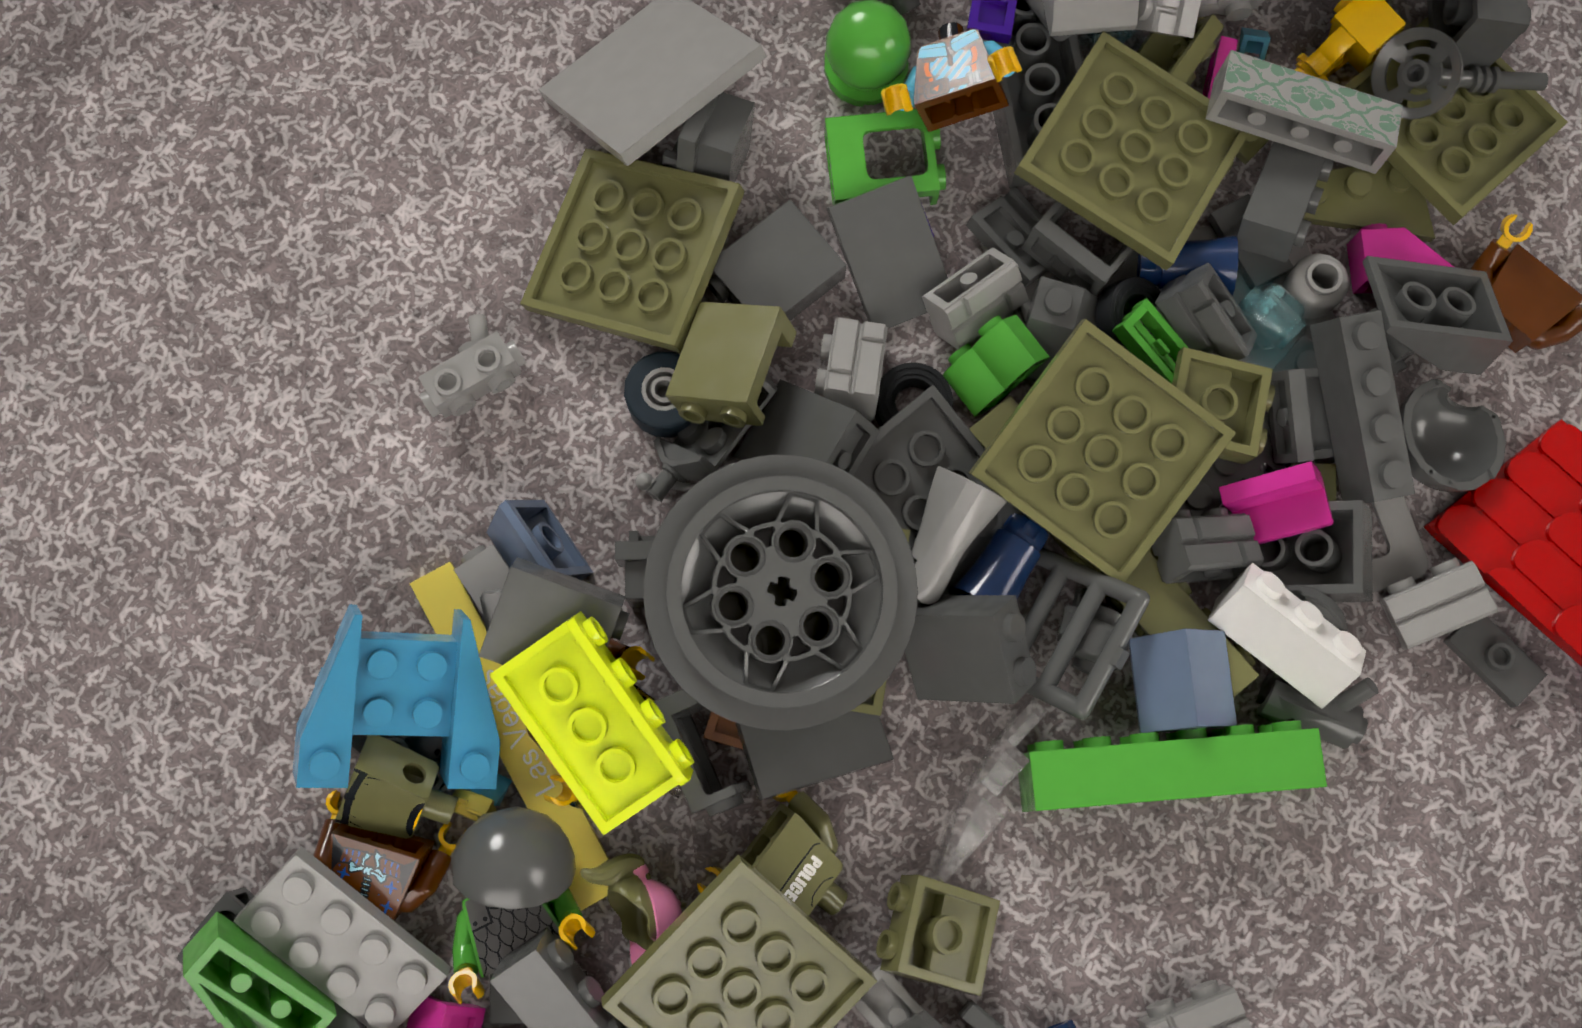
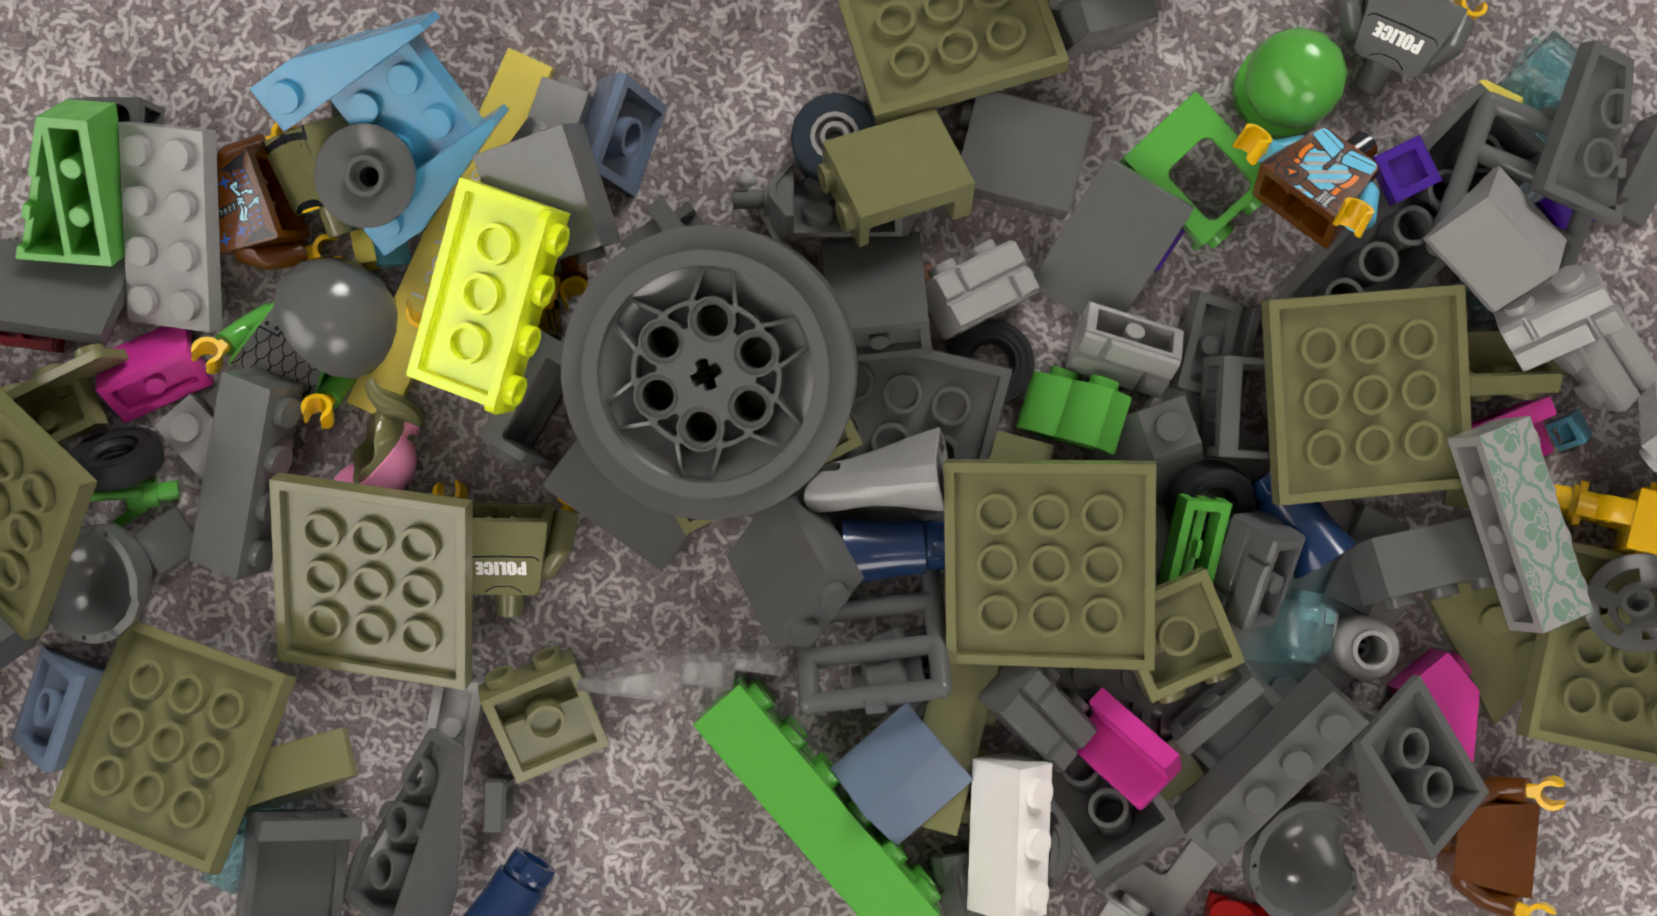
camera: 55 degrees right, 10 degrees up
(404, 755) = (343, 169): none -> dark grey dish

